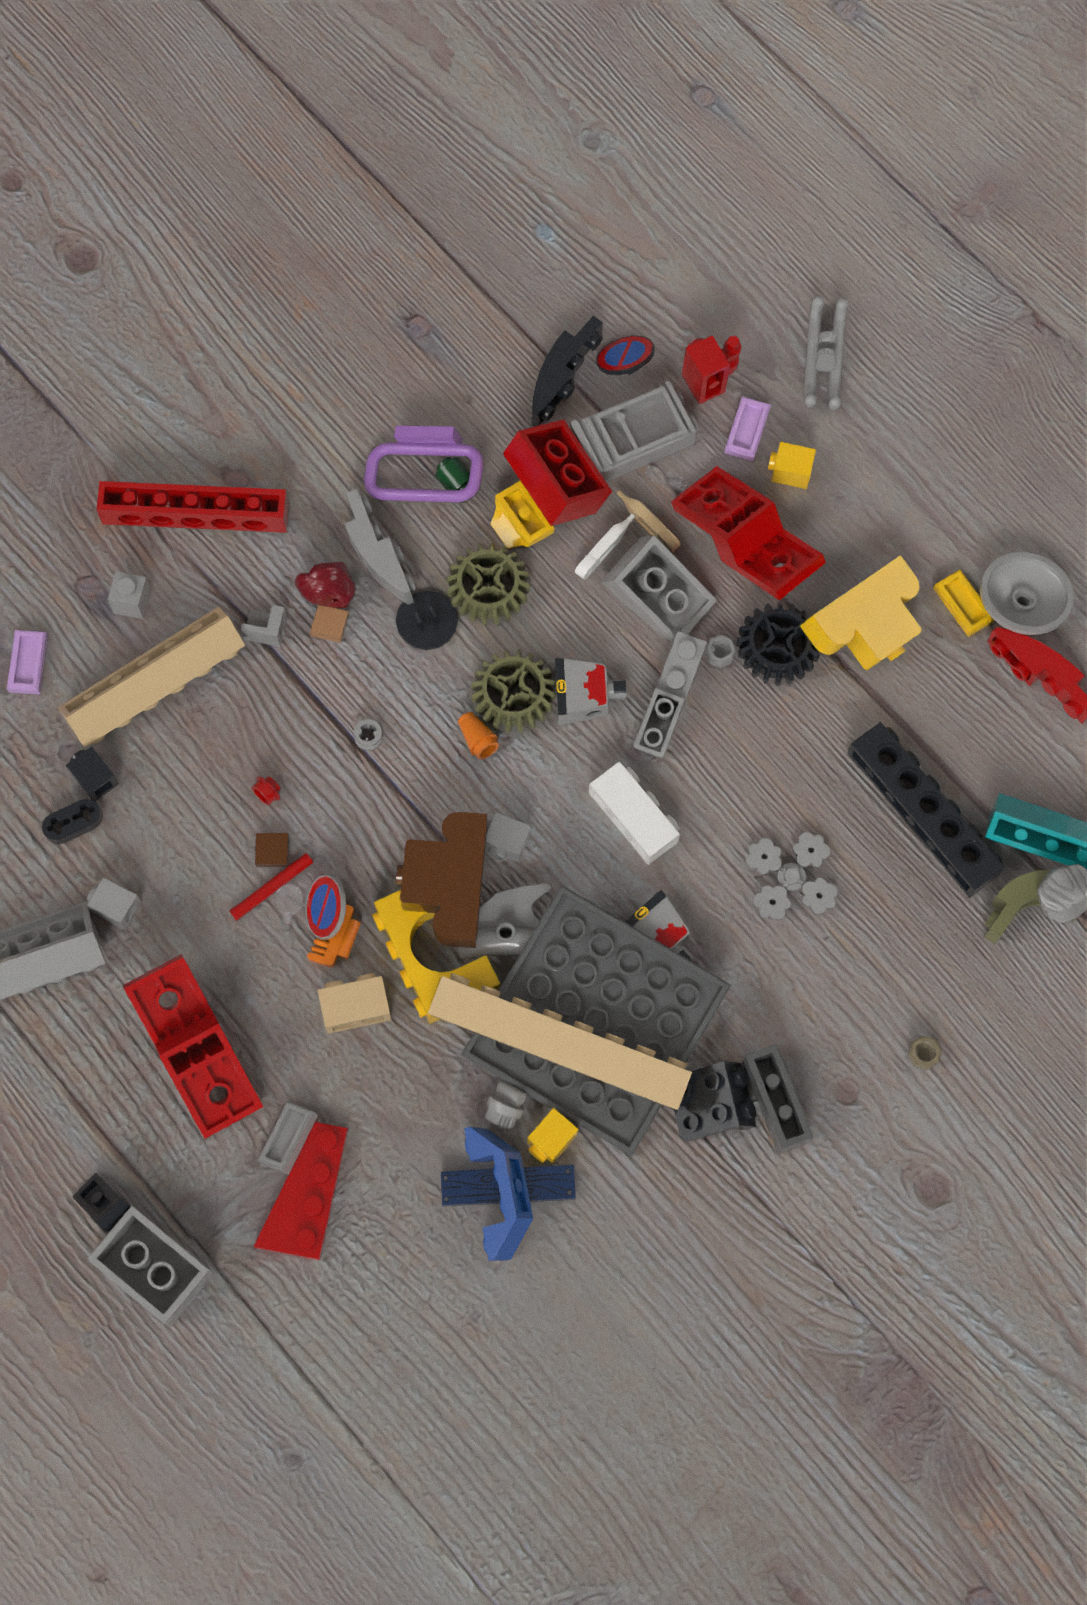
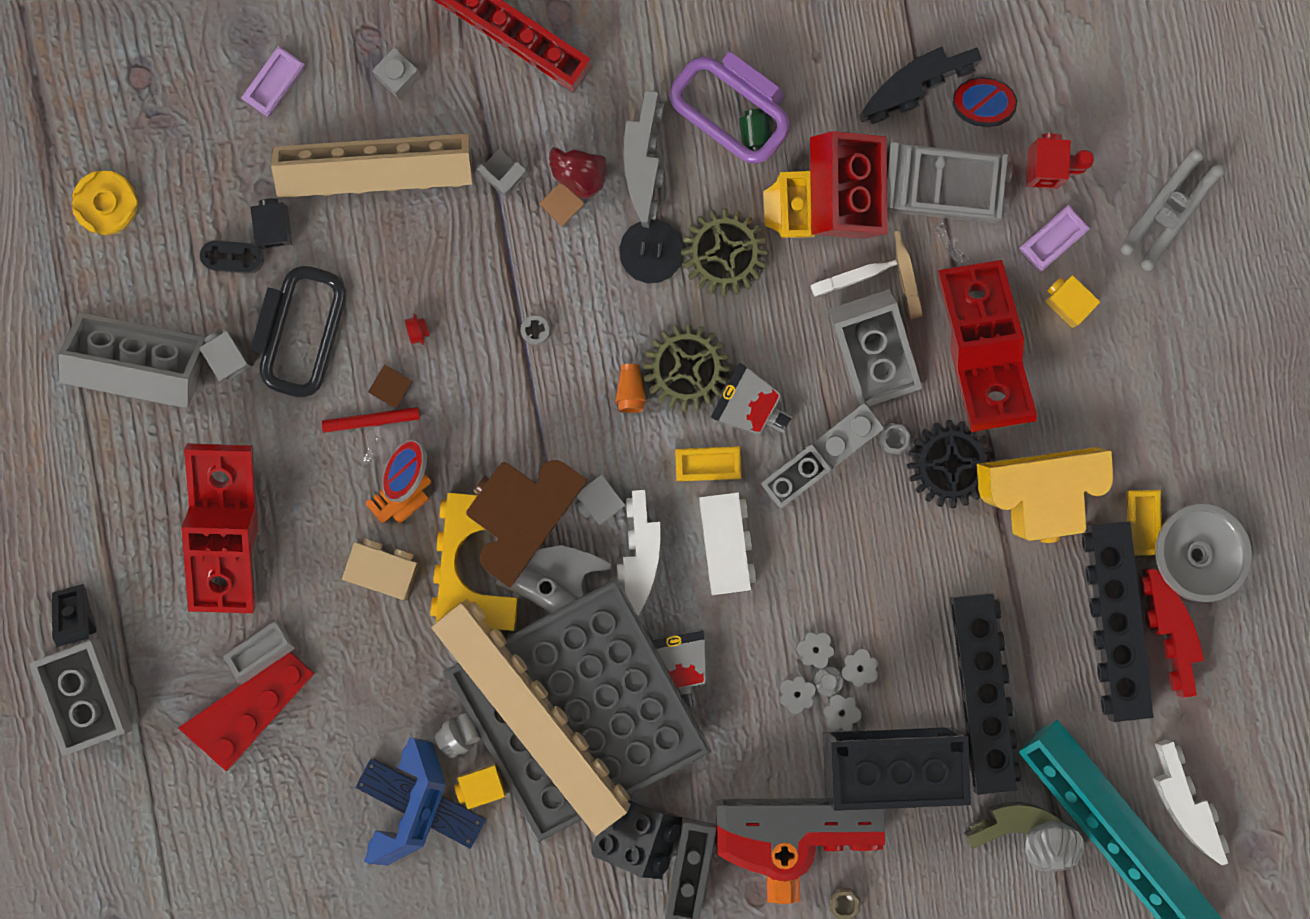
camera: 30 degrees right, 15 degrees up
(139, 856) = (272, 323): none -> black bar
(568, 850) = (640, 570): none -> white slope
(579, 760) = (708, 463): none -> yellow tile
(838, 1018) = (756, 829): none -> piece
(894, 897) = (896, 769): none -> black window
(952, 624) = (1138, 701): none -> black brick

